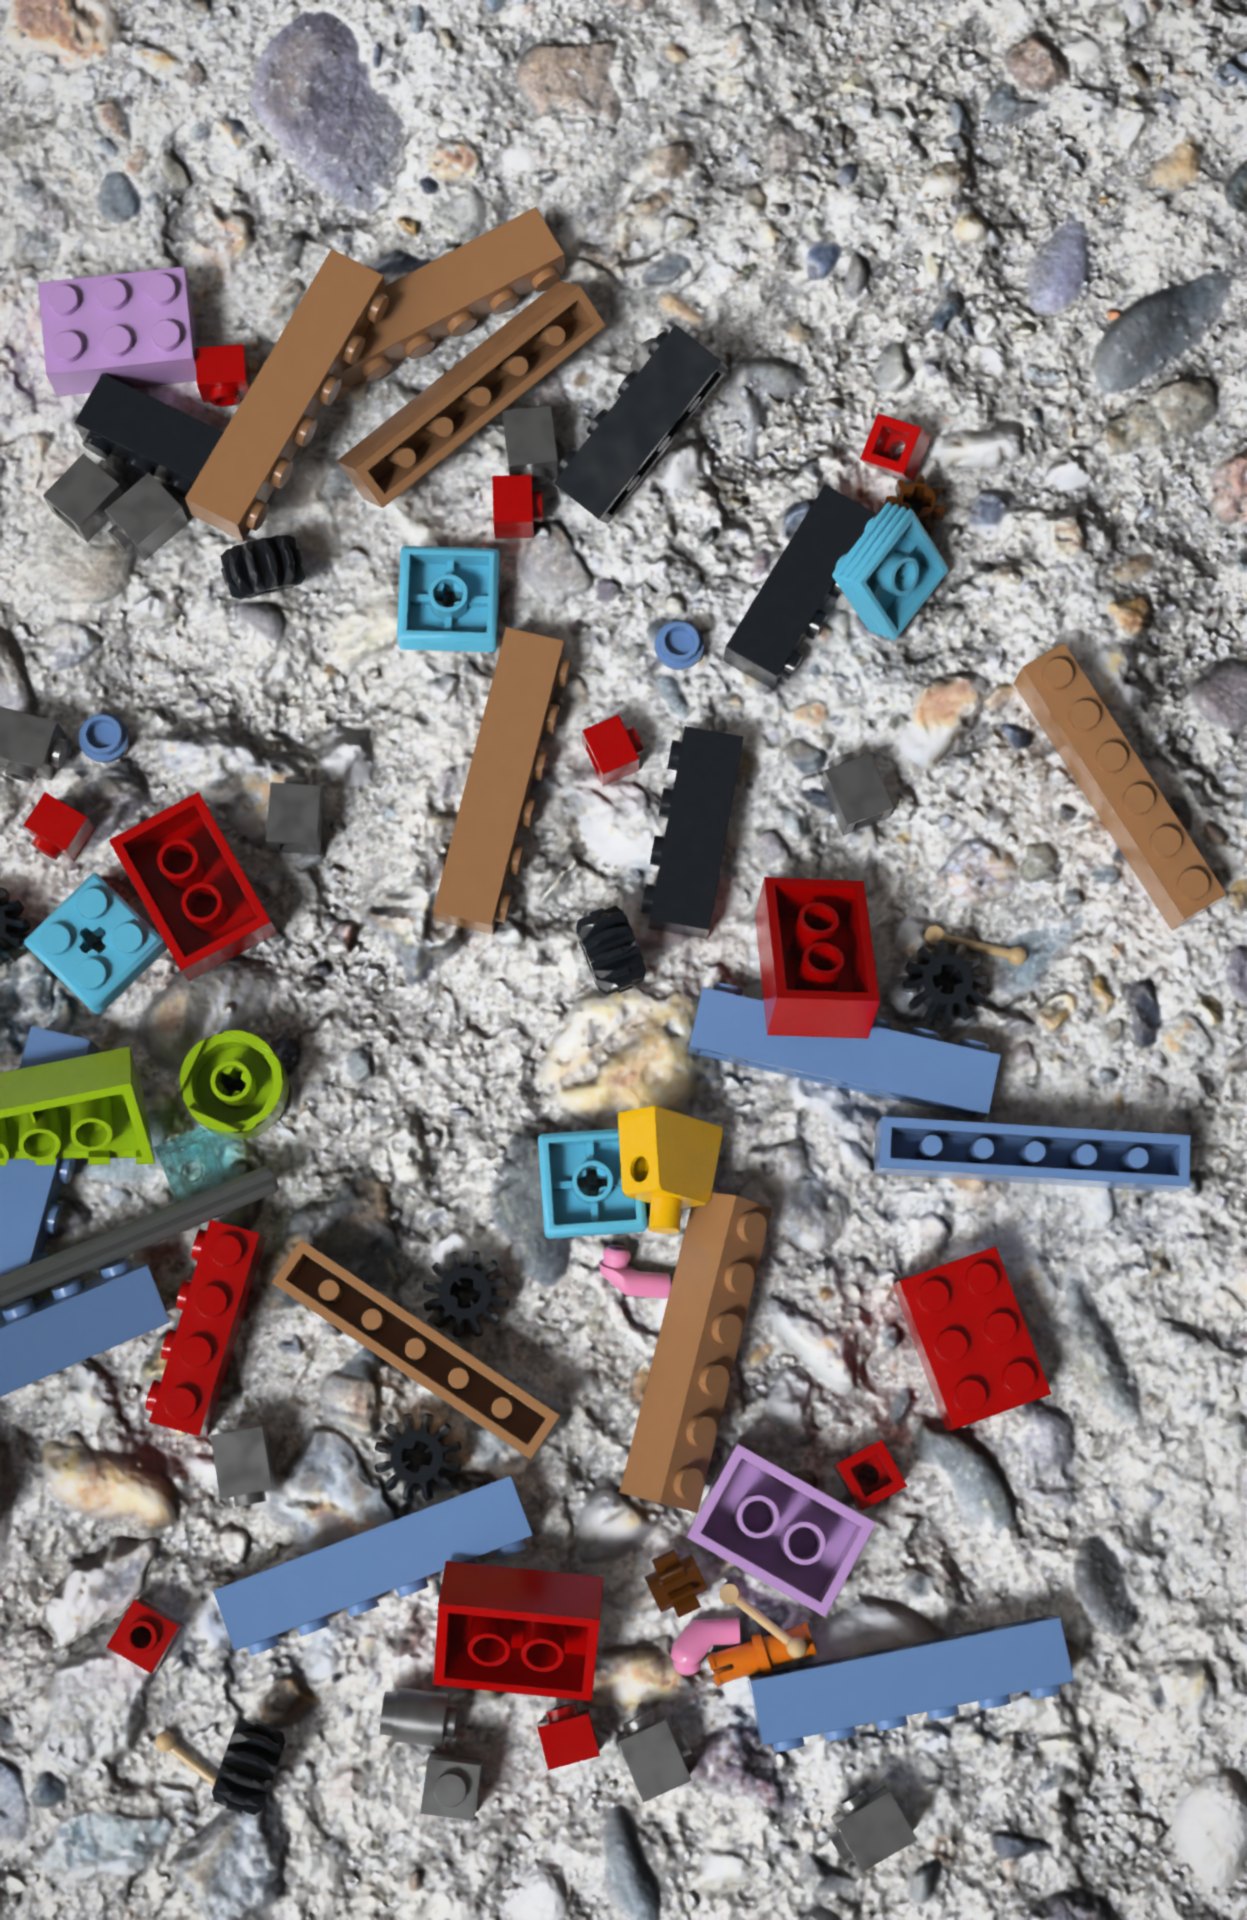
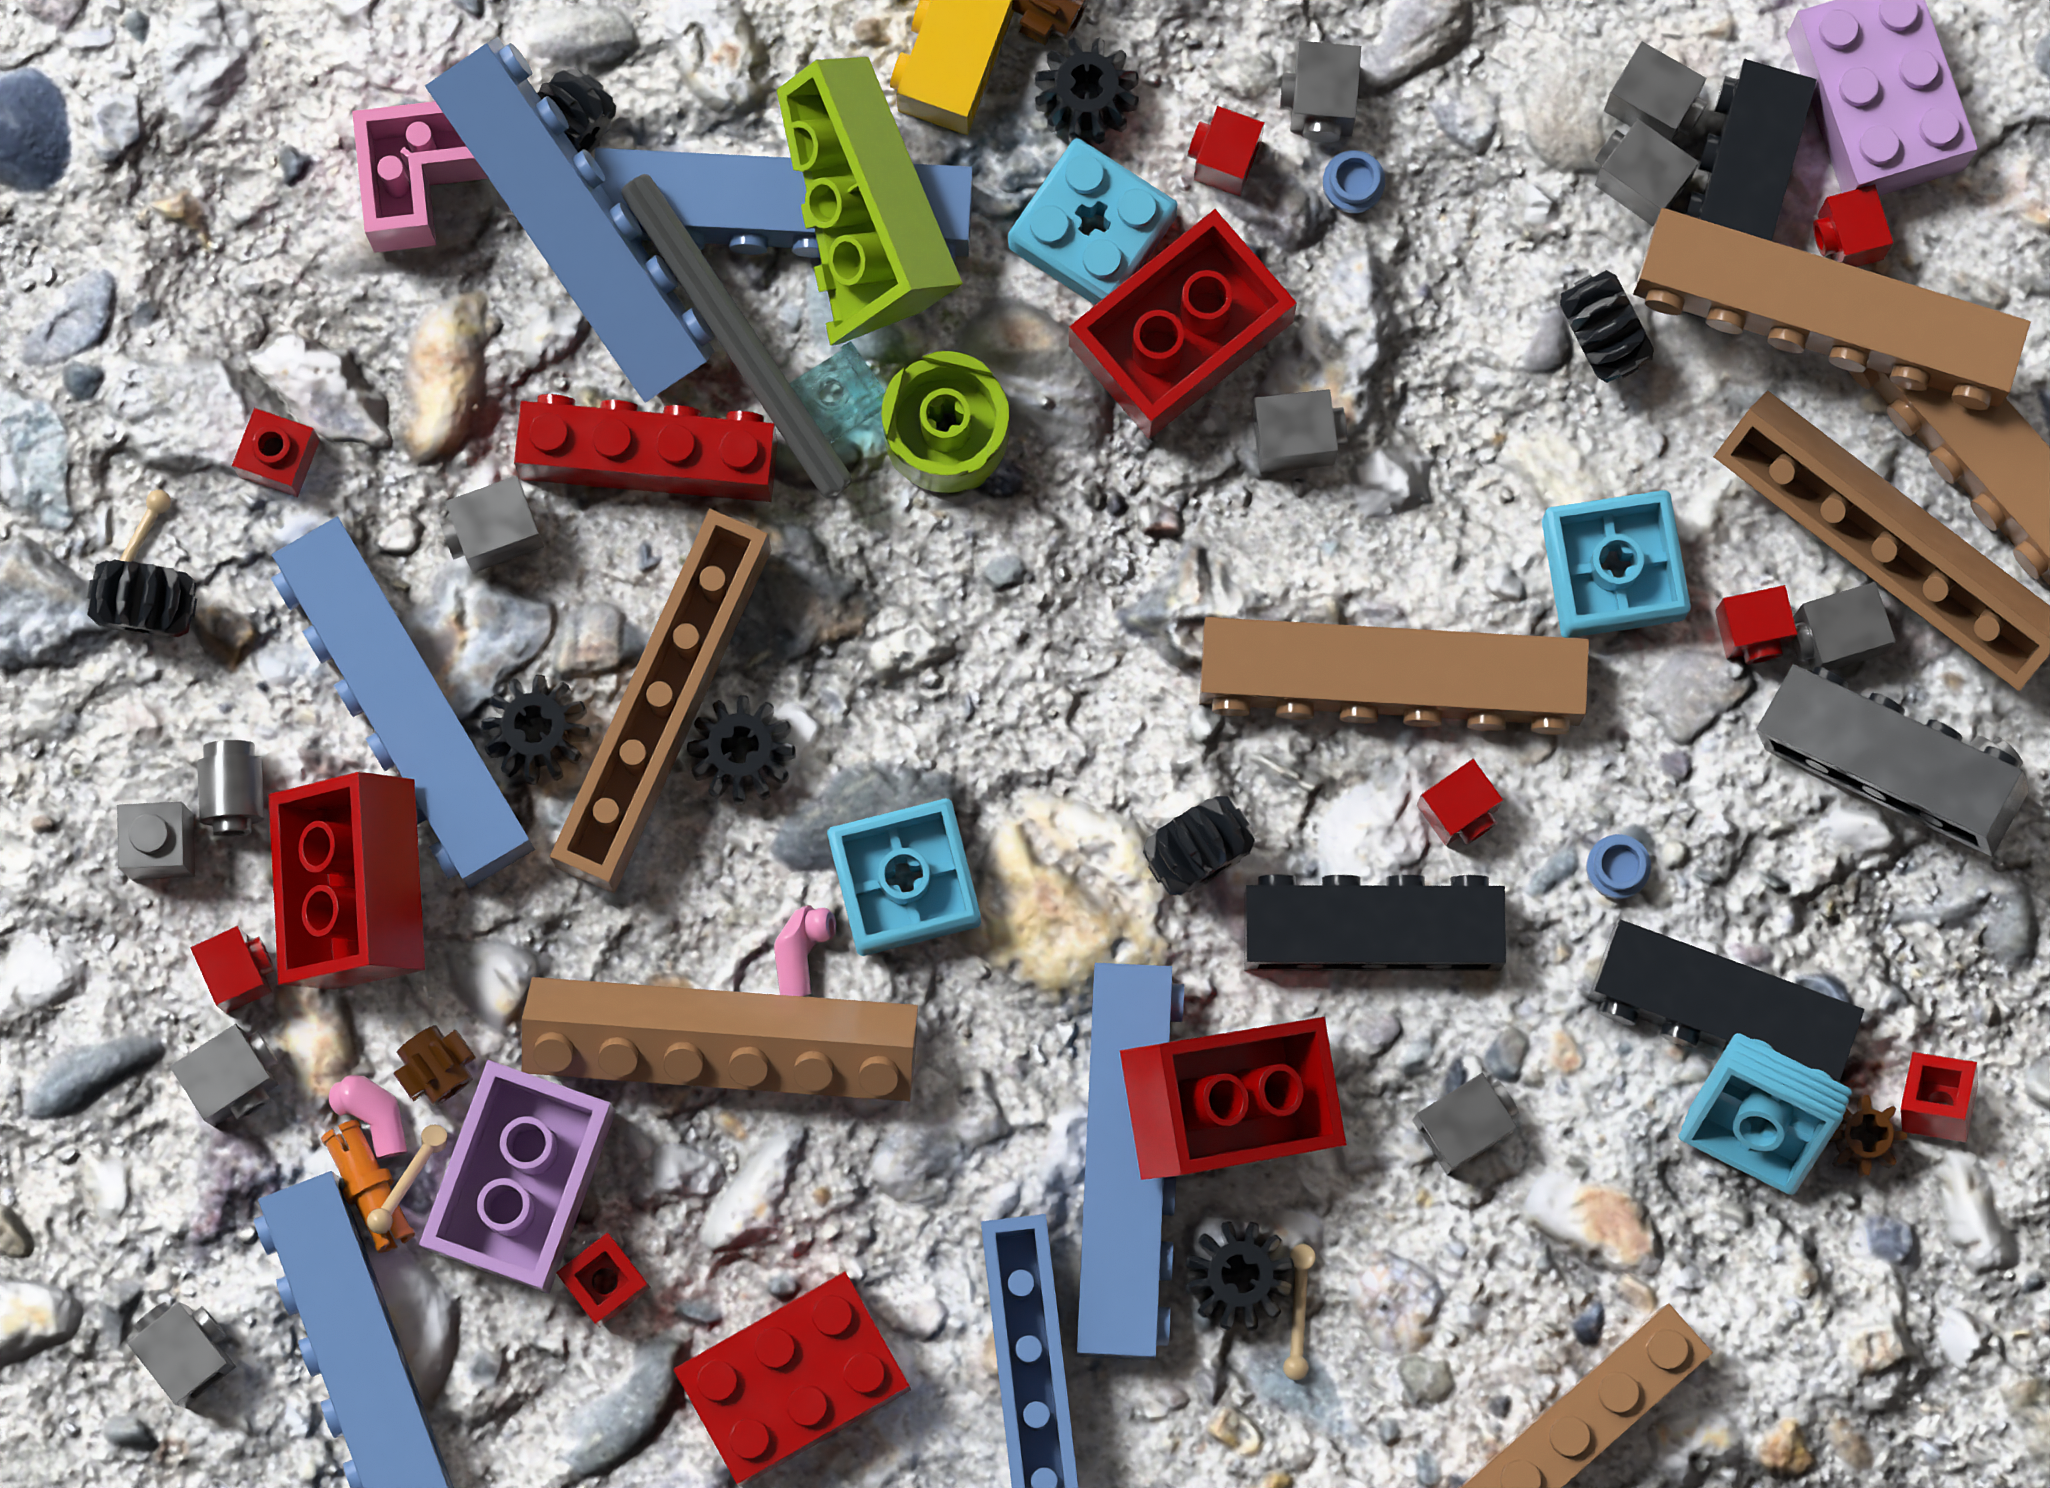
camera: 85 degrees right, 0 degrees up
(667, 1162) = (941, 960): yellow torso -> none

